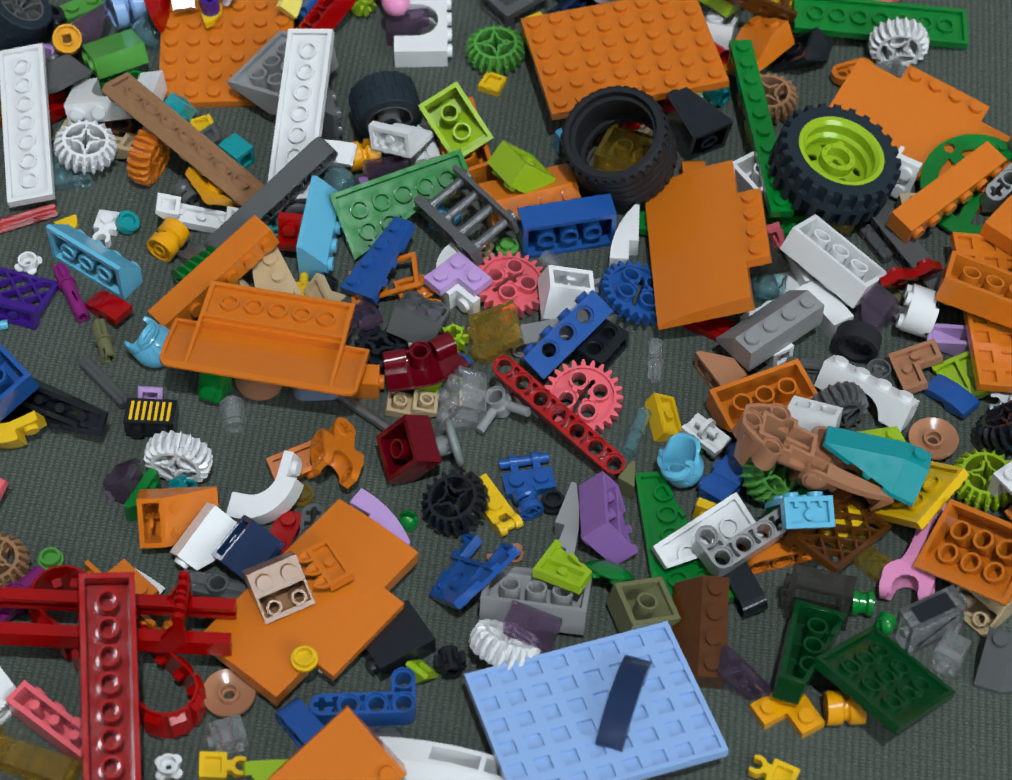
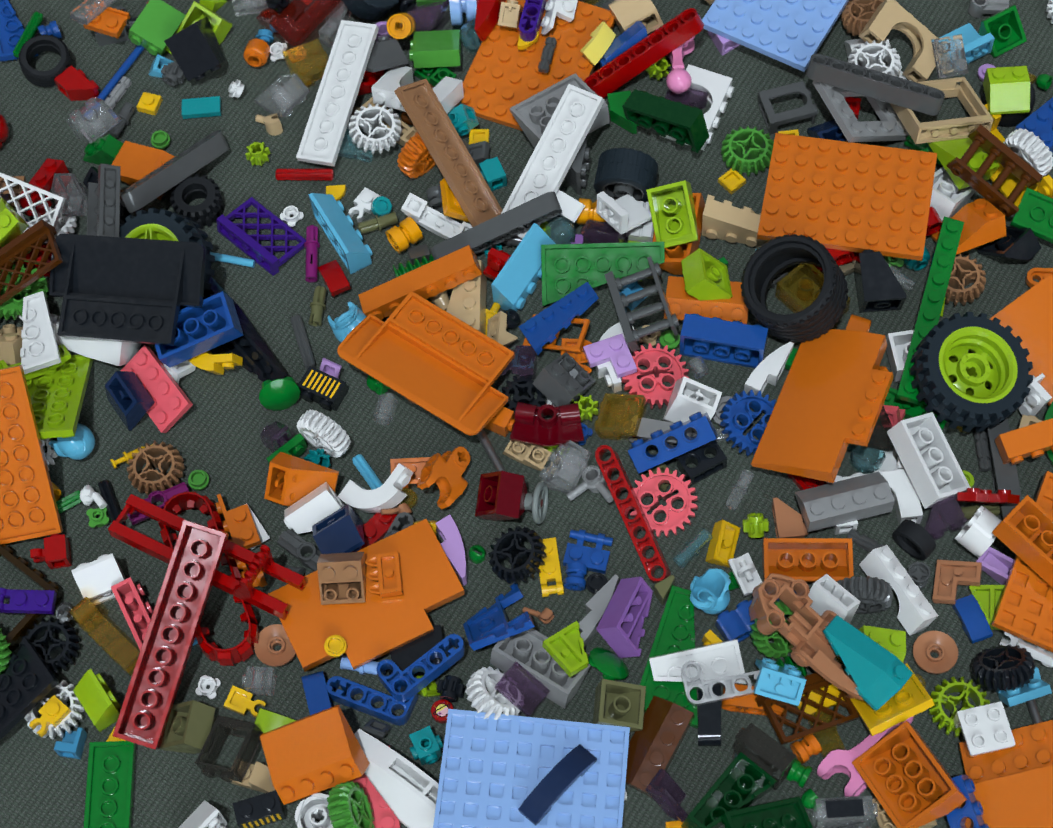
camera: 30 degrees right, 10 degrees up
(105, 437) = (279, 394): none -> green dish
(132, 238) = (377, 223): none -> olive axle
(240, 22) = (547, 54): none -> dark grey axle
(240, 482) = (366, 471): none -> medium azure axle
(297, 508) = (400, 509): none -> nougat hand
(348, 675) = (369, 668): none -> light blue pin
(350, 54) = (615, 102): none -> green slope
(402, 38) = (667, 118): none -> dark green wedge
(413, 643) = (422, 664): none -> blue beam
(450, 690) = (440, 710): none -> tile
(453, 727) = (425, 746): none -> teal brick
(517, 117) = (730, 223): none -> tan wedge
(690, 386) = (755, 525): none -> lime gear
(861, 570) = (806, 748): none -> orange wheel

